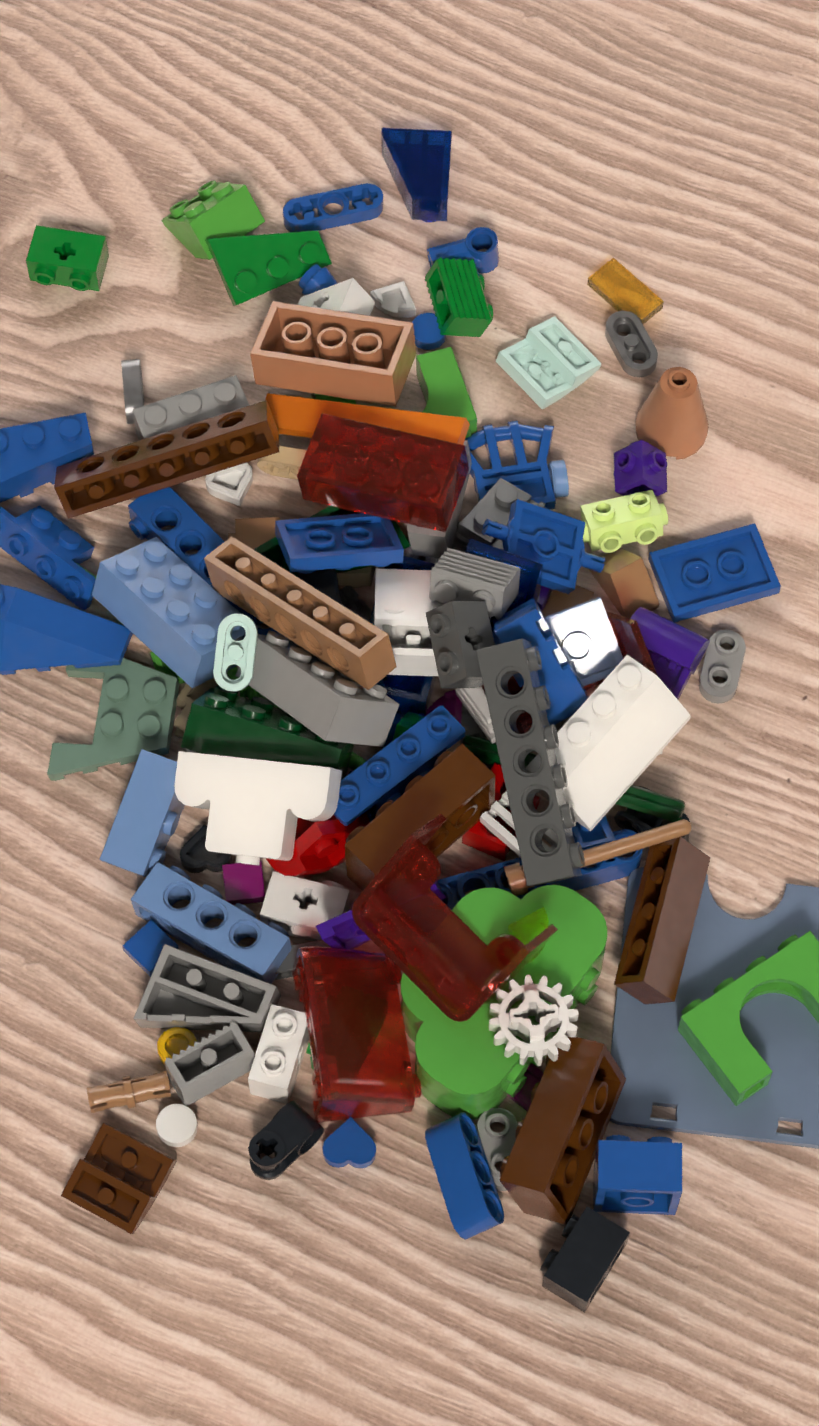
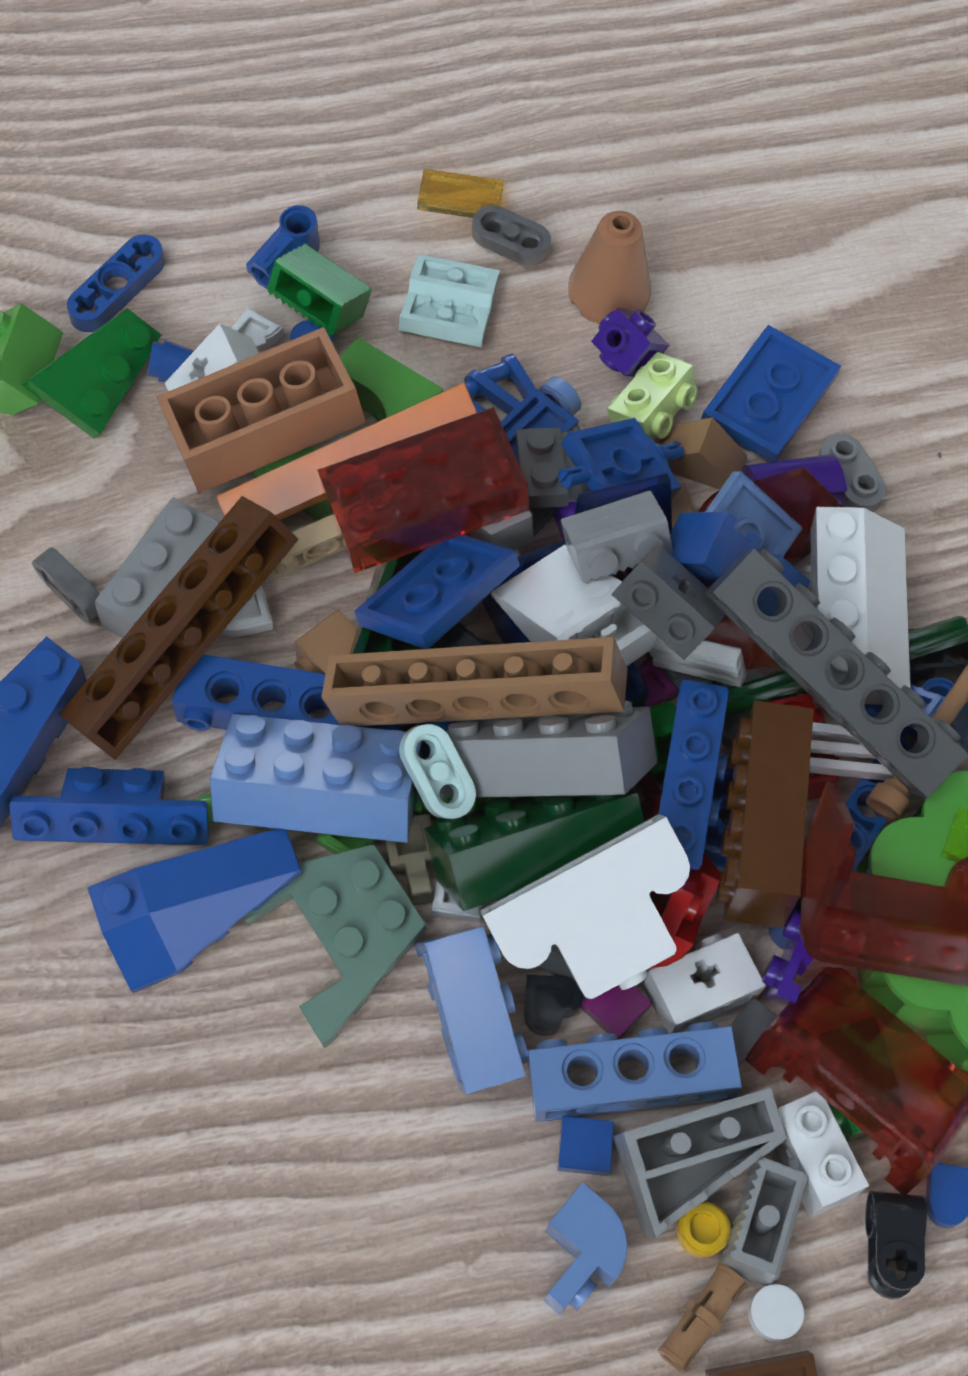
camera: 45 degrees left, 0 degrees up
(102, 1006) = (595, 1238): none -> medium blue brick
(420, 169) = (173, 195): clear blue slope -> none

